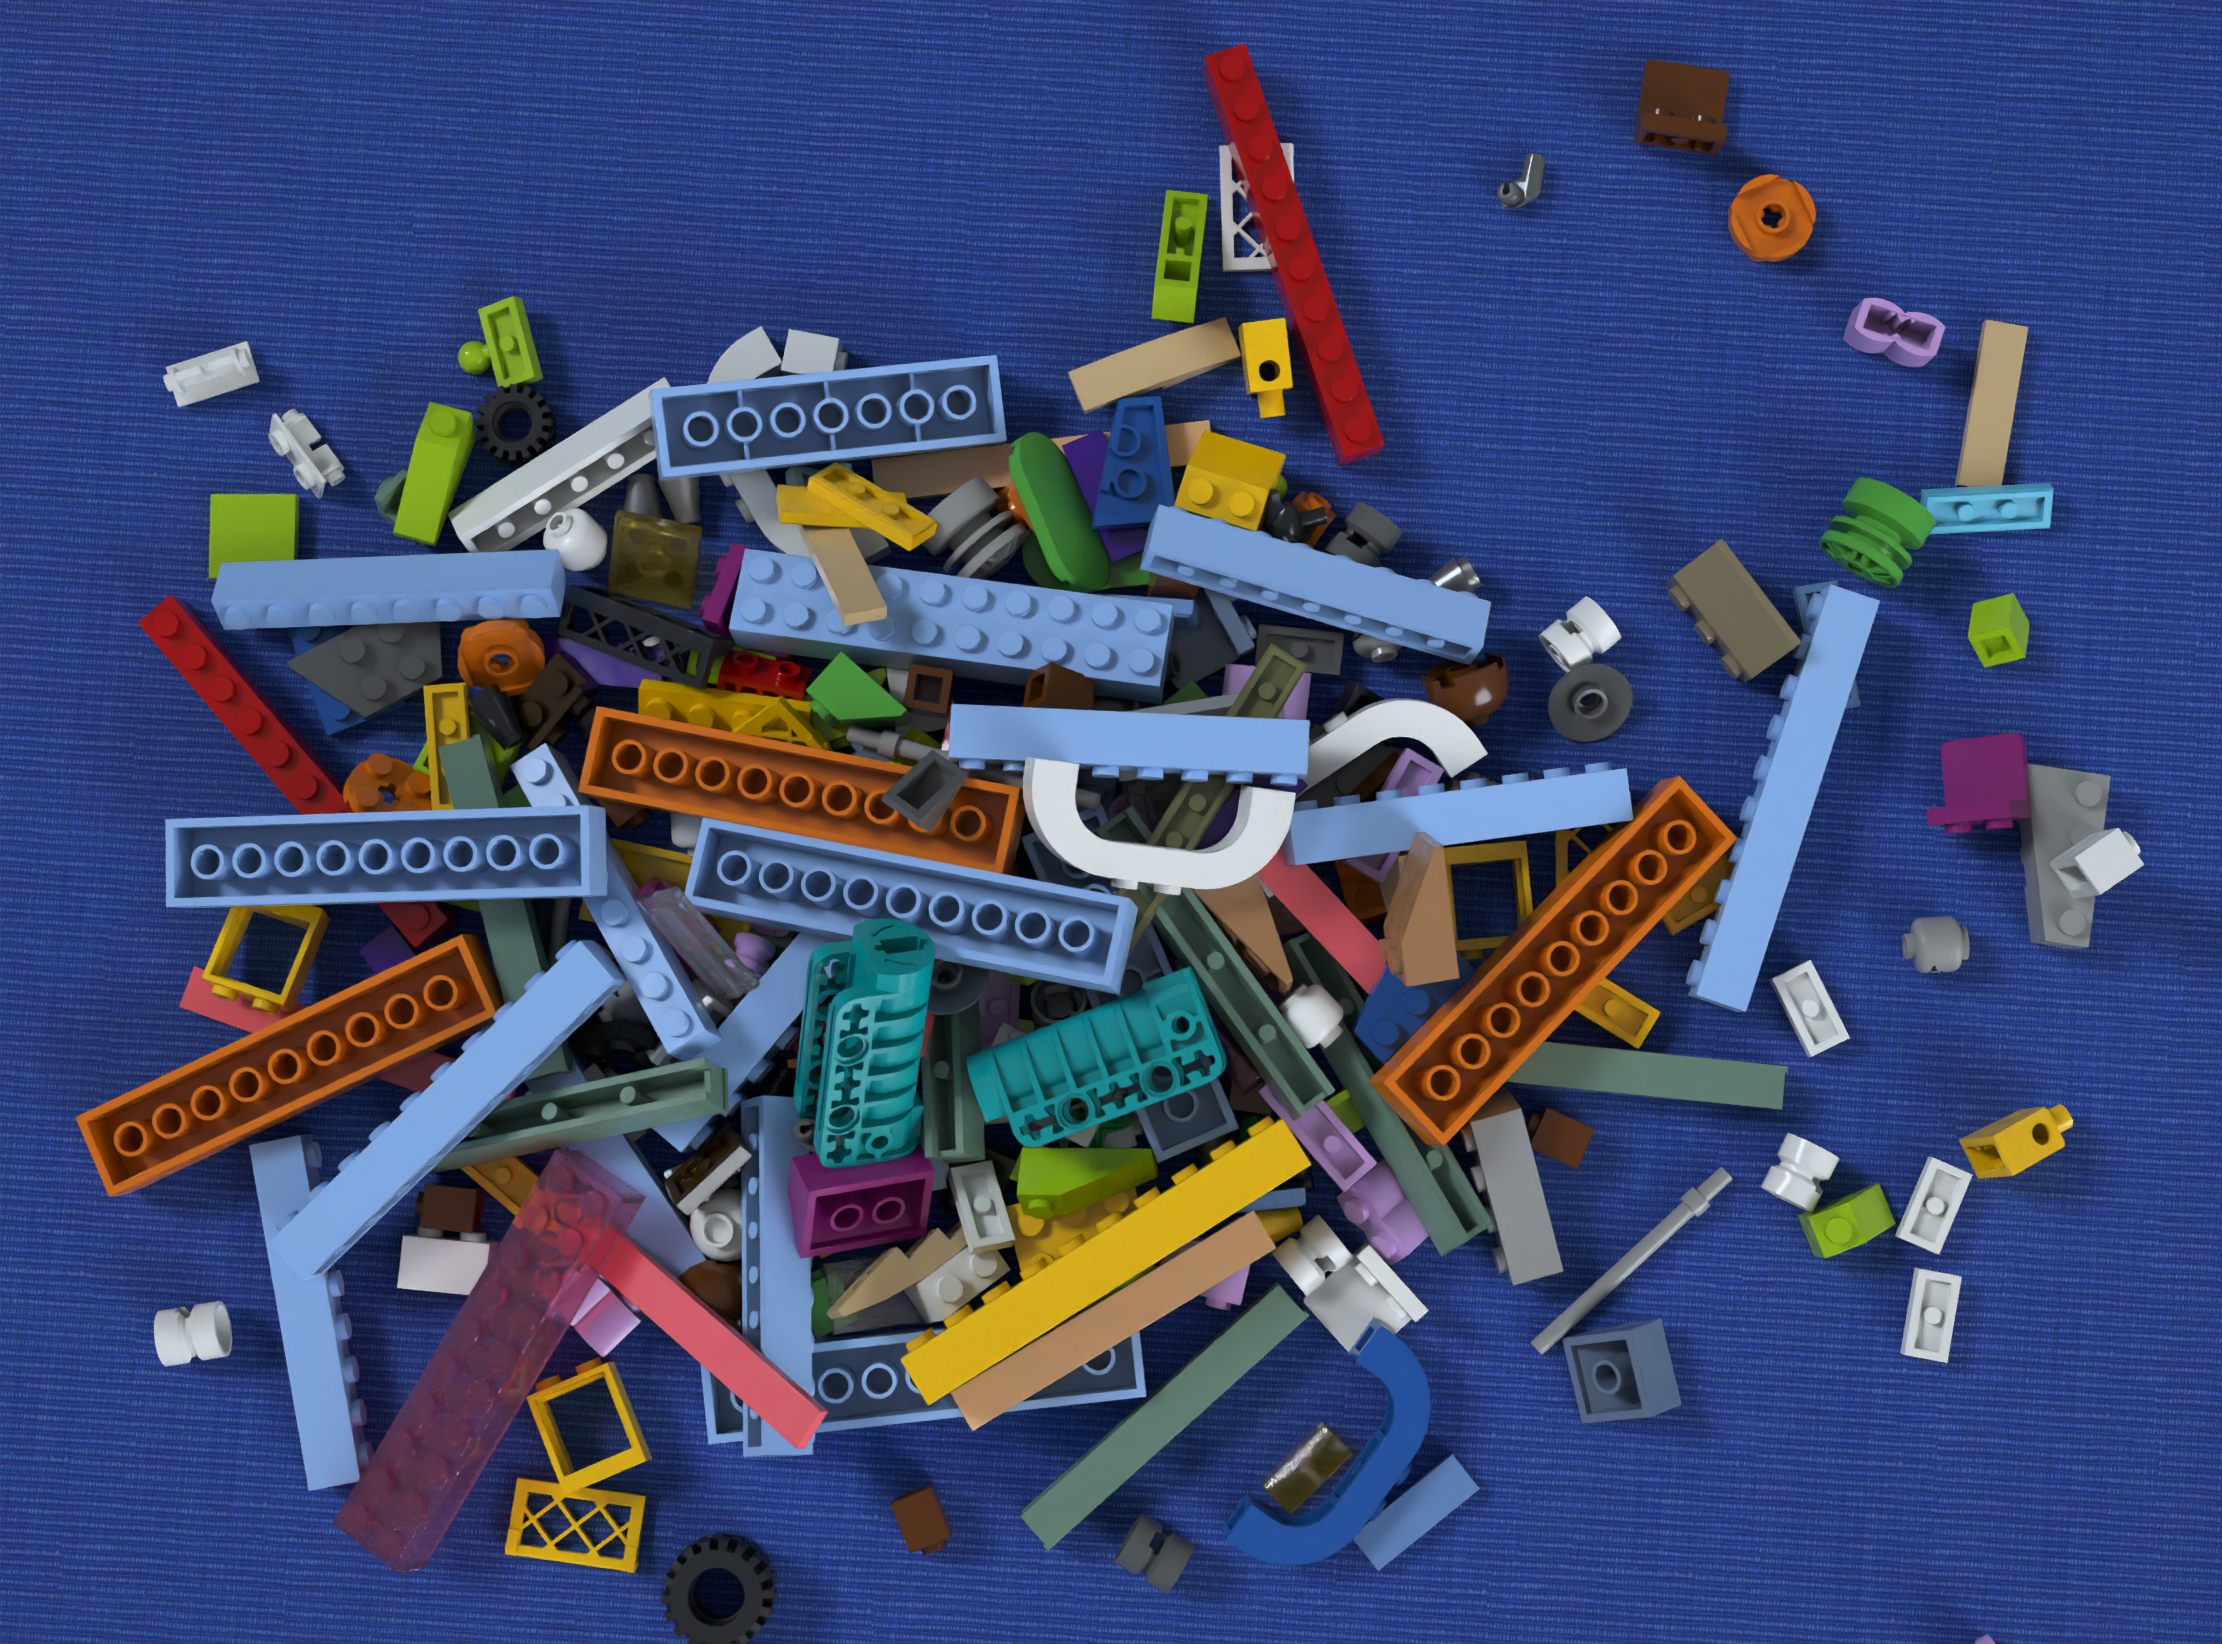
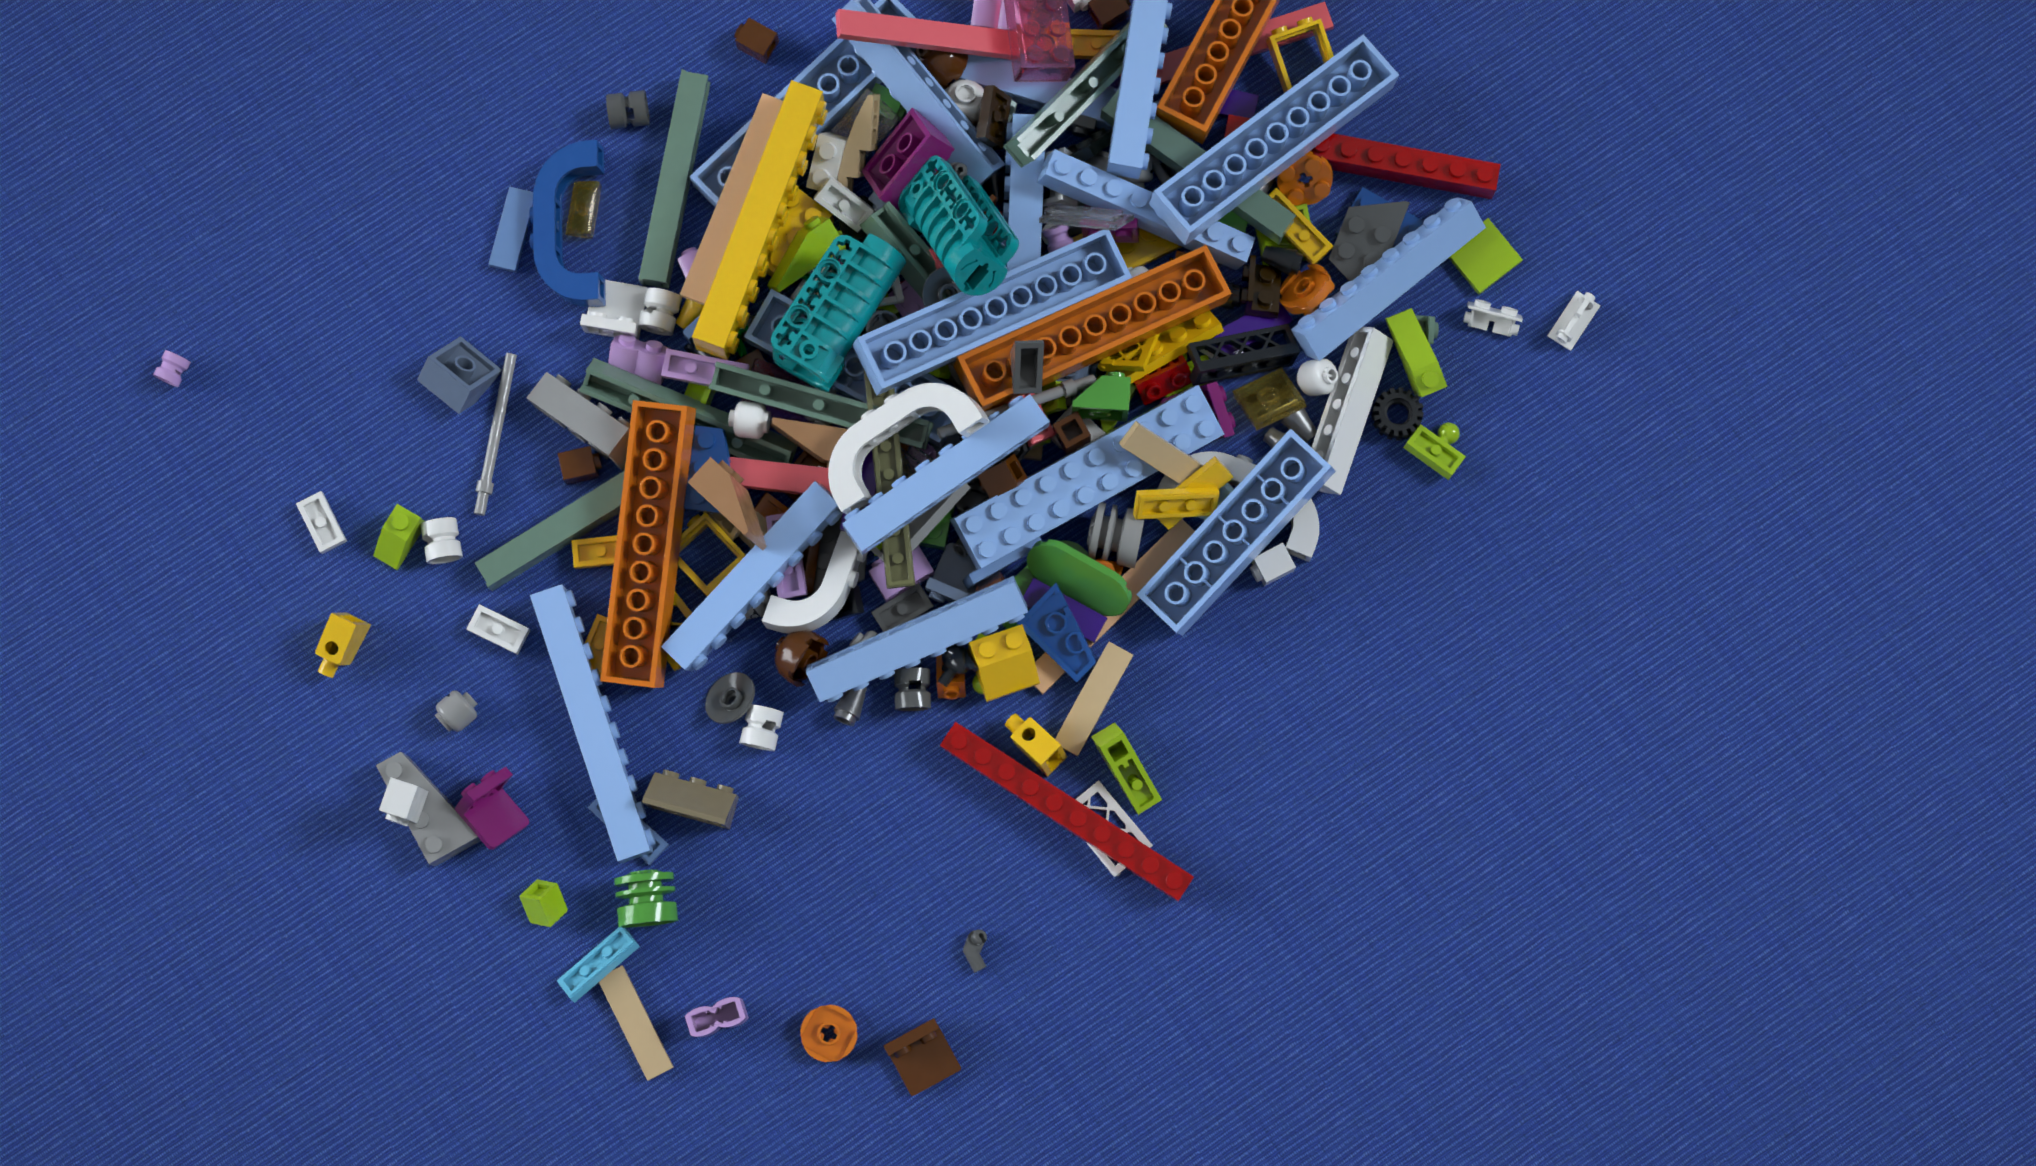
camera: 140 degrees right, 5 degrees down
(1933, 1205) = (360, 578): white plate -> none

